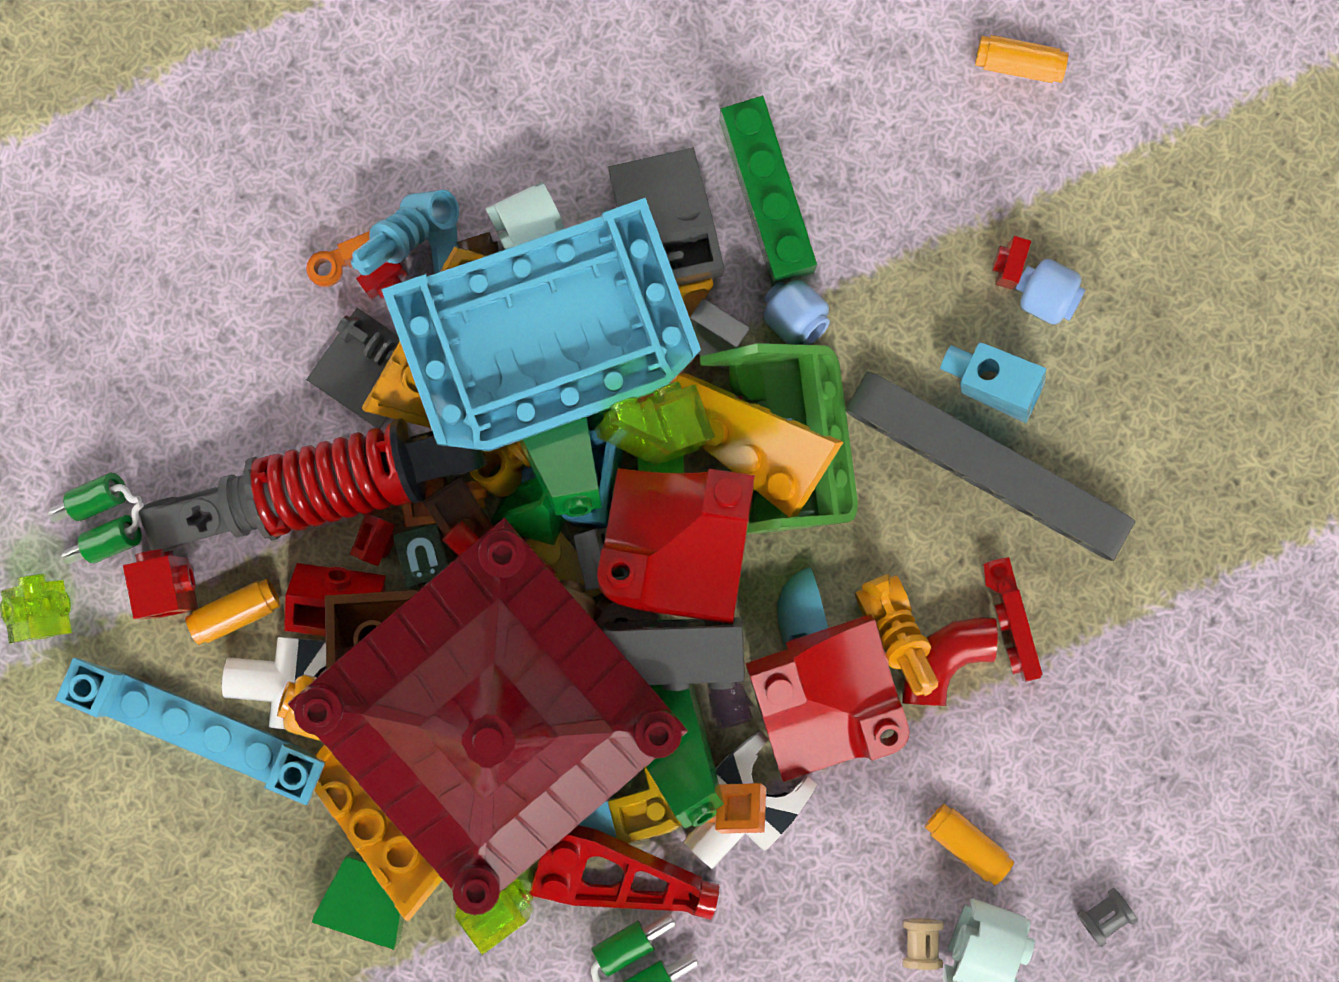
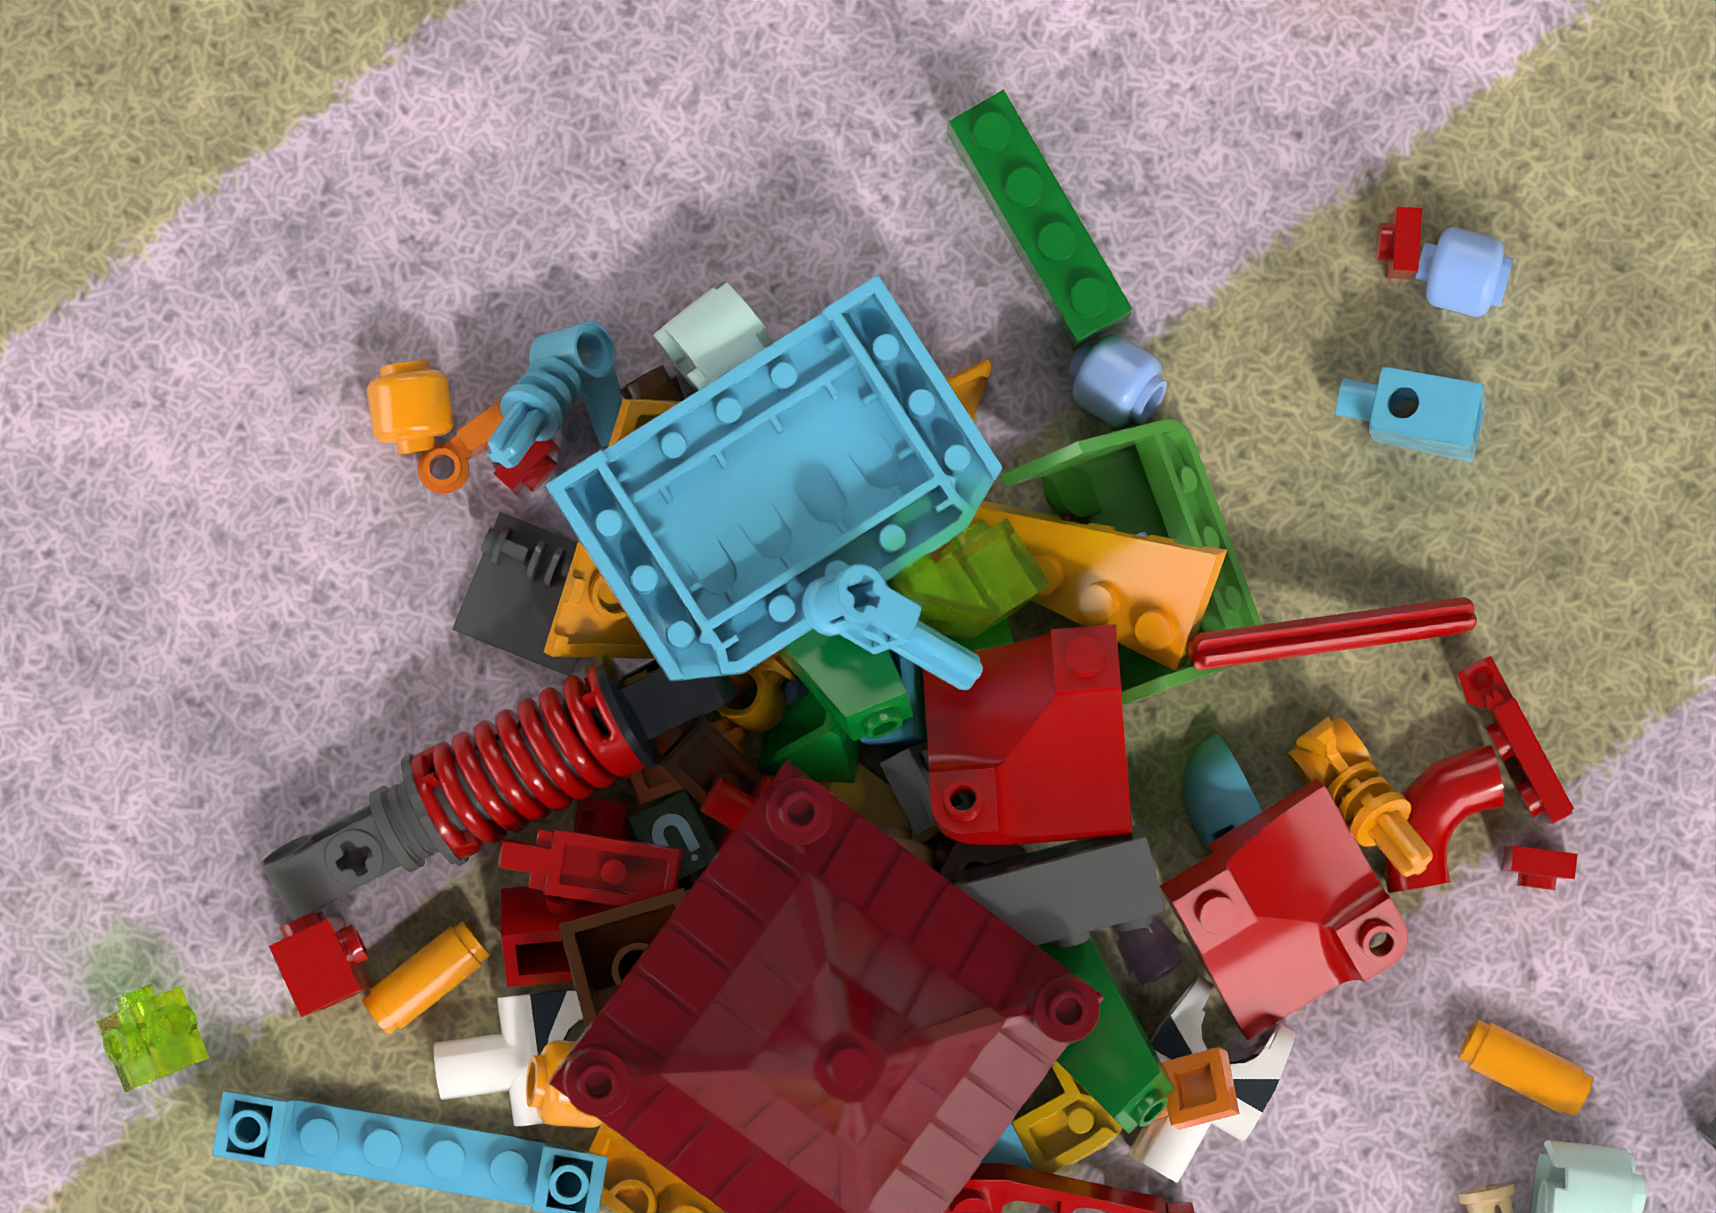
camera: 15 degrees left, 0 degrees up
(109, 537) = (226, 915): green piece -> none
(311, 221) = (410, 406): none -> light orange head
(360, 561) = (594, 866): none -> red hinge
(594, 436) = (880, 619): none -> medium azure connector
(678, 208) = (921, 269): dark grey slope -> none
(716, 329) = (1013, 430): dark grey piece -> none
(902, 516) = (1331, 633): none -> red axle
(990, 466) = (1435, 534): dark grey beam -> none
(1009, 709) = (1539, 866): none -> red plate

